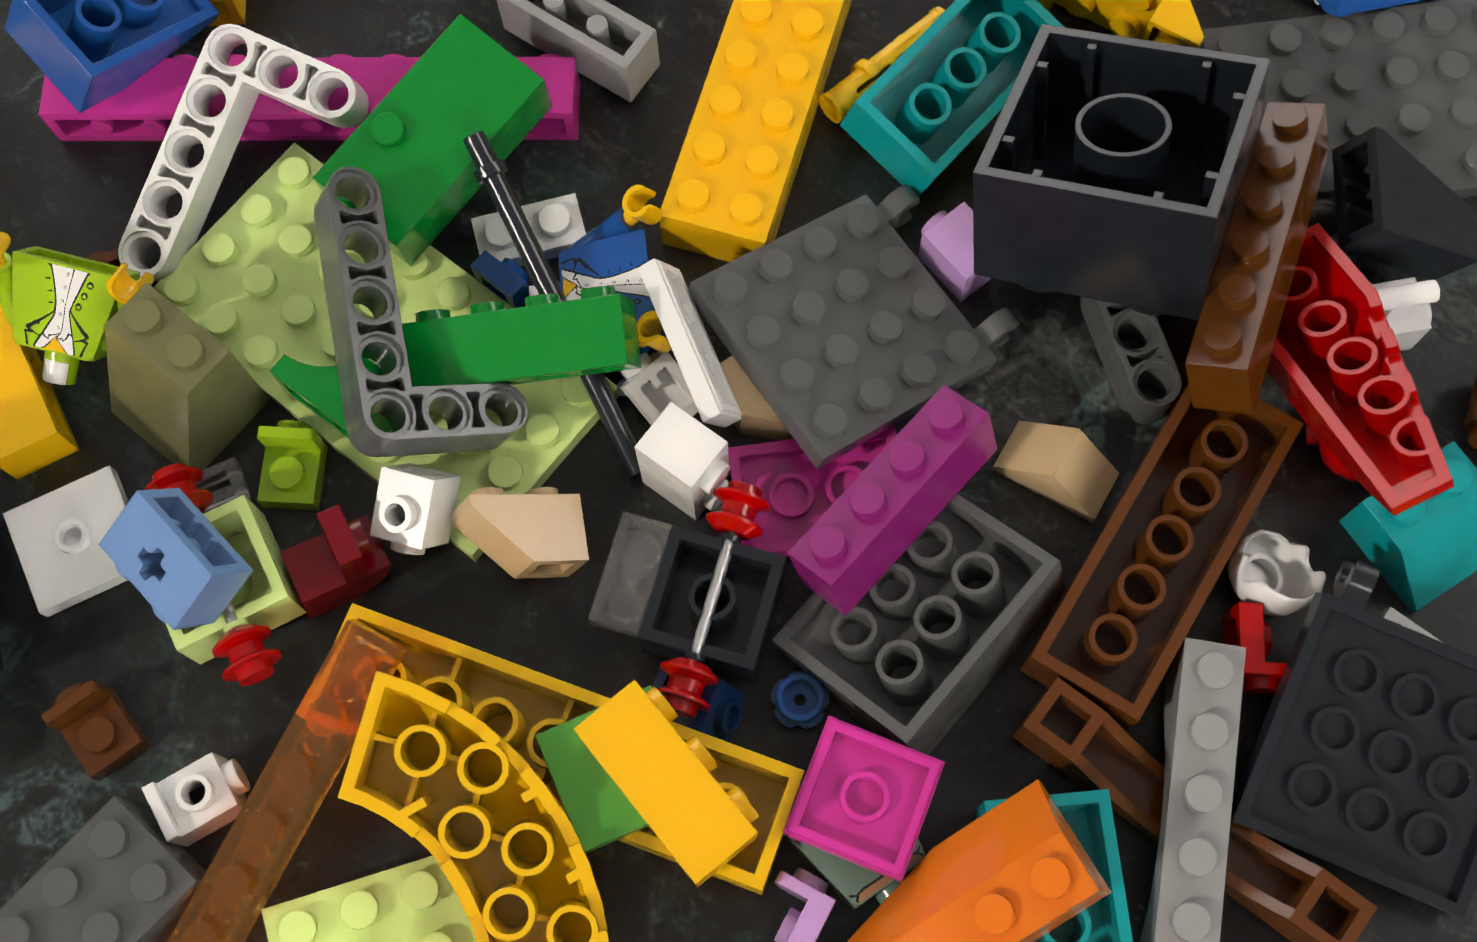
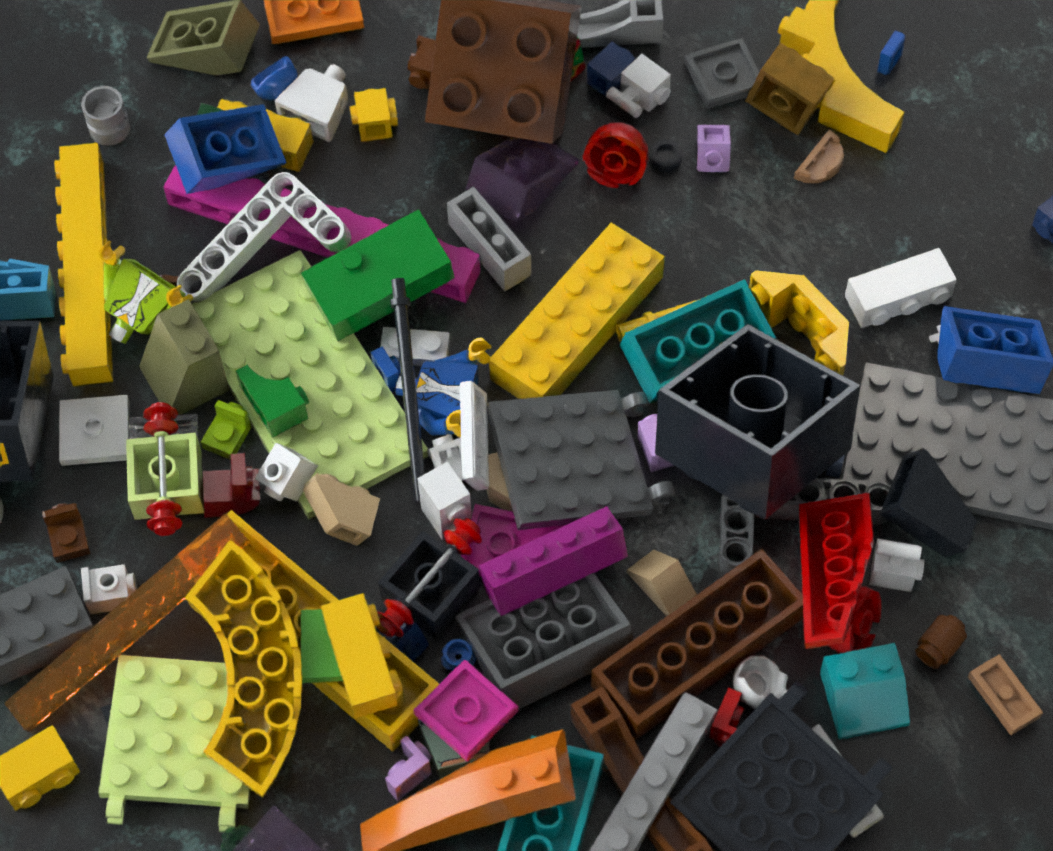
camera: 20 degrees right, 10 degrees down
(175, 558) = (147, 450): medium blue brick -> none
(383, 341) = (302, 373): dark grey beam -> none
(526, 342) = (378, 403): green brick -> none
(629, 574) = (388, 552): clear plate -> none
(1258, 259) = (818, 496): reddish brown brick -> none

